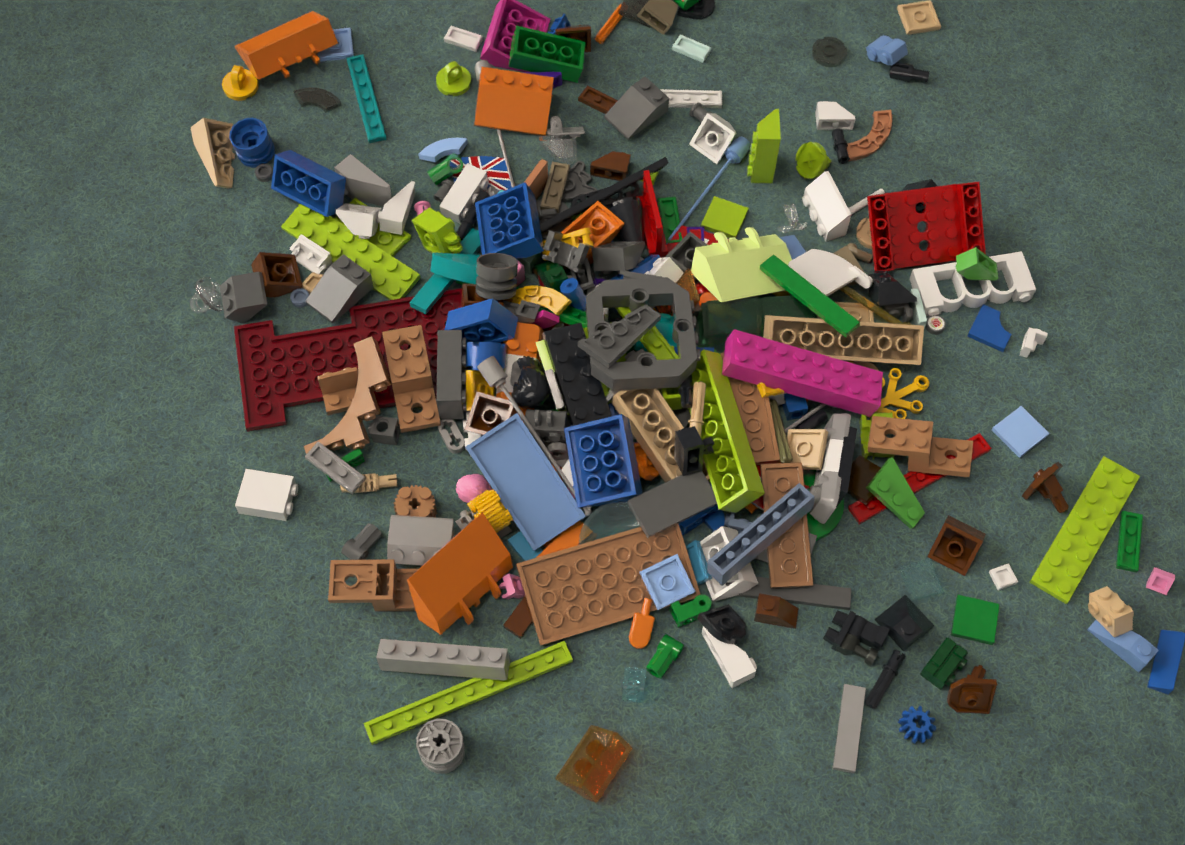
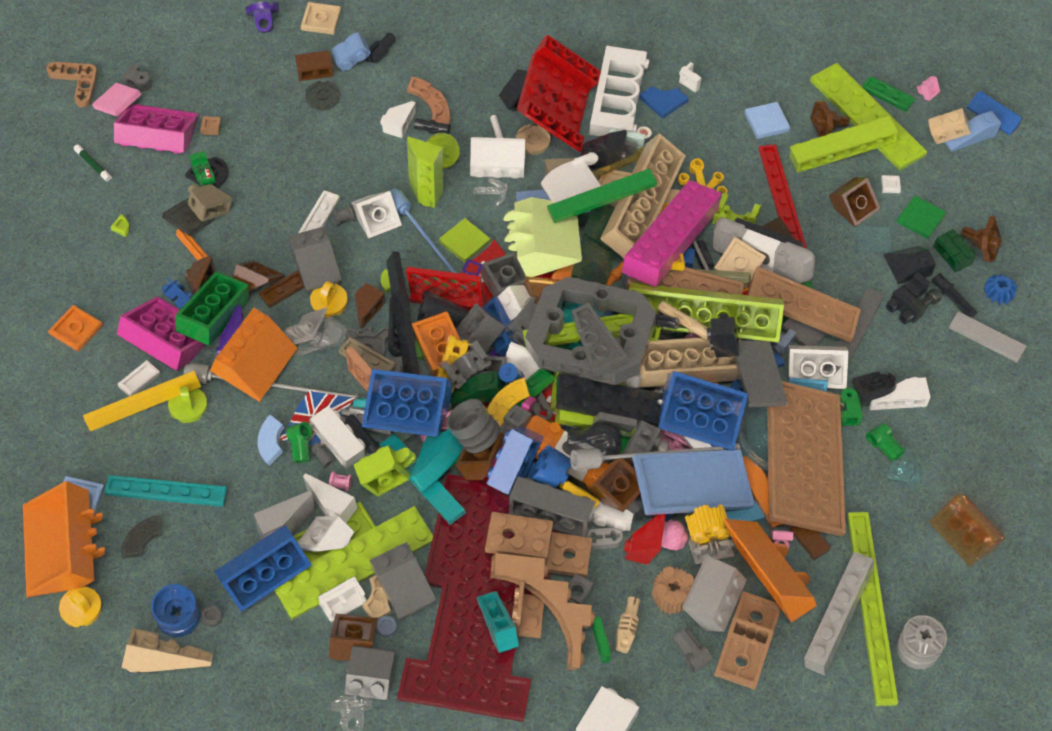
camera: 70 degrees left, 5 degrees down
(308, 376) = (498, 622): none -> teal slope
(335, 467) = (609, 644): light grey tile -> none
(437, 45) = (140, 401): none -> yellow tile
(455, 466) = (646, 541): none -> red slope
(602, 74) = (256, 274): none -> reddish brown slope
(605, 138) = (330, 297): none -> yellow tile
(642, 626) = (853, 448): orange piece -> none
(667, 582) = (823, 412): light blue tile -> none
(691, 48) = (260, 195): light aqua tile -> none
(760, 534) = (818, 318): sand blue brick -> none
(775, 611) = (870, 349): reddish brown slope -> none
(856, 30) = (314, 65): none -> reddish brown brick
(859, 254) = (553, 155): dark tan arm -> none
(895, 493) = (796, 221): bright green wing -> none
(925, 452) = (762, 186): medium nougat bracket -> none
(976, 265) = (611, 79): bright green slope -> none
(1024, 510) = (843, 144): none -> lime brick

